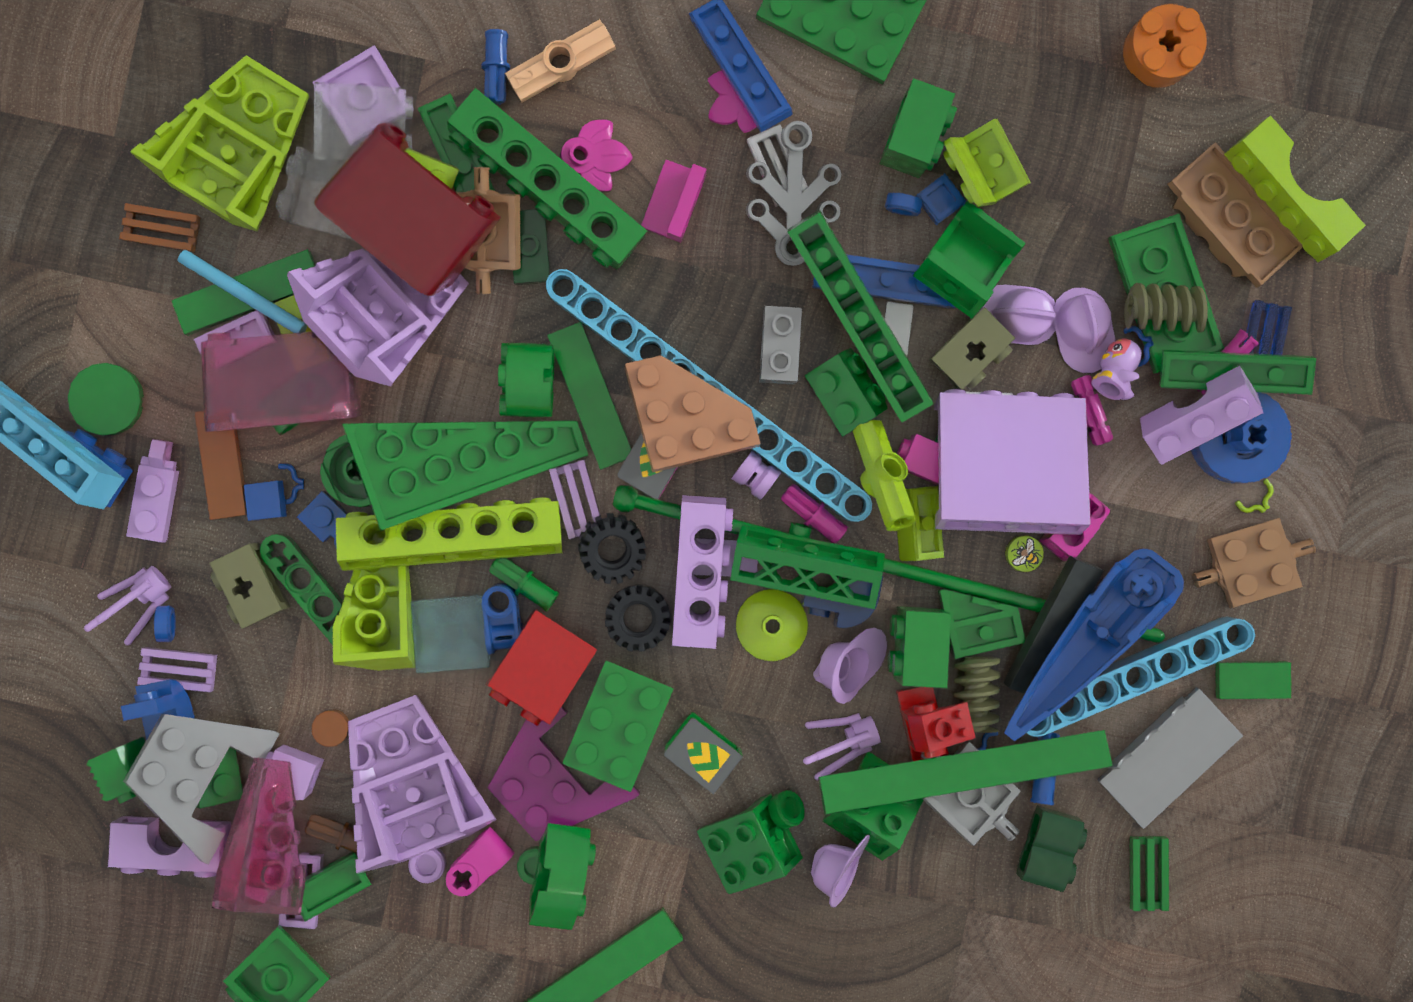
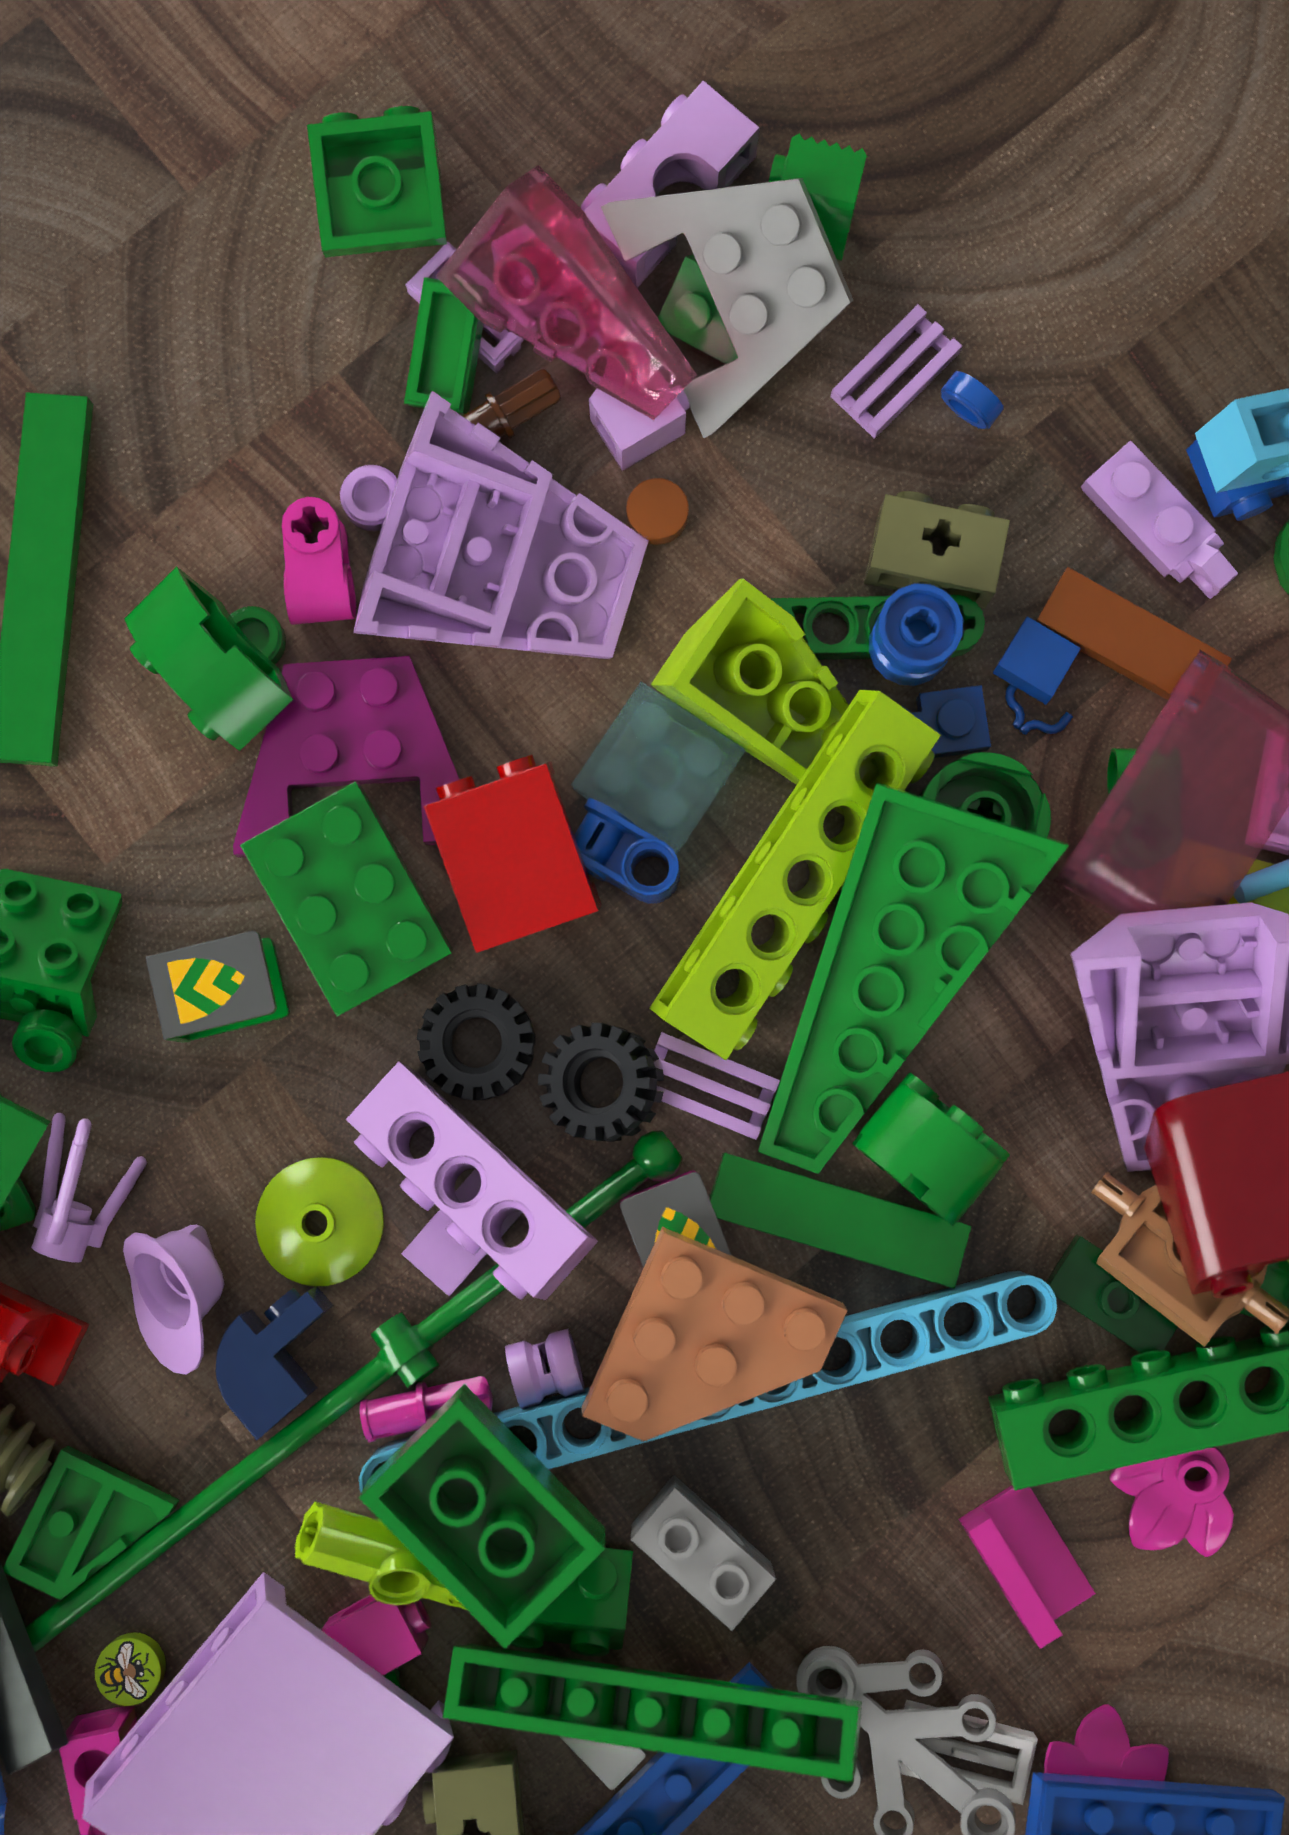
camera: 130 degrees right, 5 degrees down
(148, 586) = (1040, 416): lavender plant -> none
(158, 699) = (876, 315): blue brick -> none
(297, 564) = (915, 634): none -> blue wheel
(524, 583) = (649, 922): green axle -> none
(812, 556) = (360, 1364): green fence -> none
(834, 453) = (484, 1516): none -> green brick
(920, 646) = (114, 1415): green brick -> none
(921, 539) = (265, 1541): lime slope -> none

